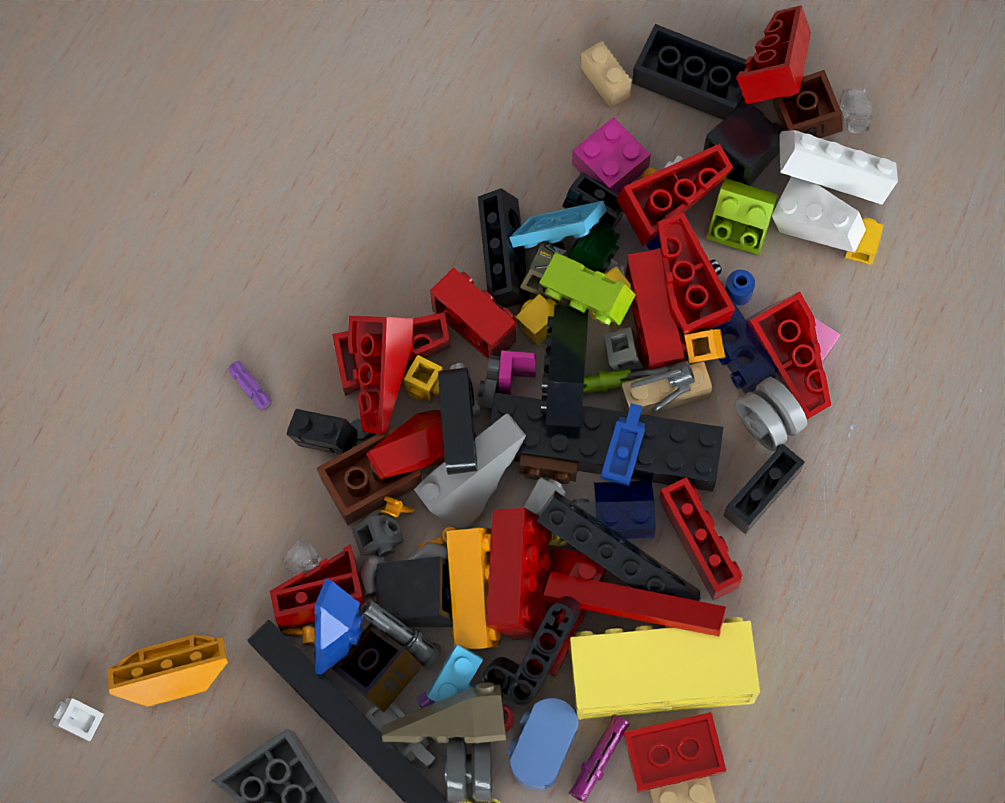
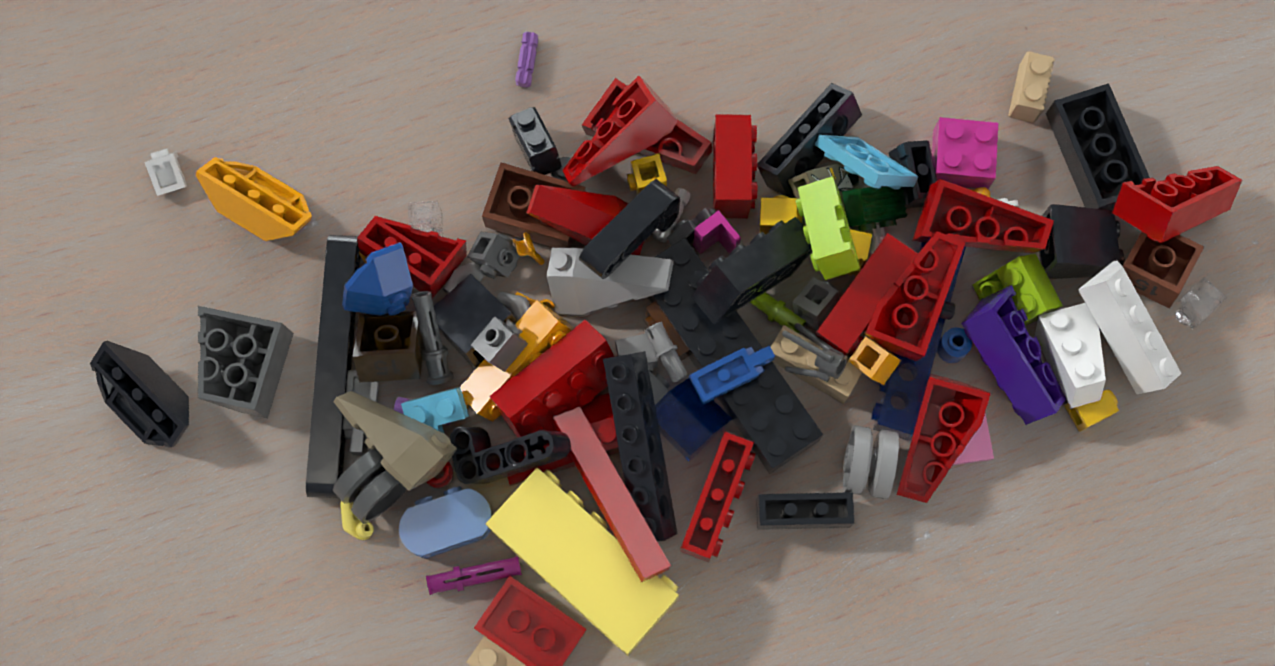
camera: 45 degrees right, 5 degrees up
(455, 583) = (500, 343): none -> dark grey brick
(566, 478) = (666, 351): none -> light grey axle
(784, 255) = (1014, 356): none -> dark purple wedge

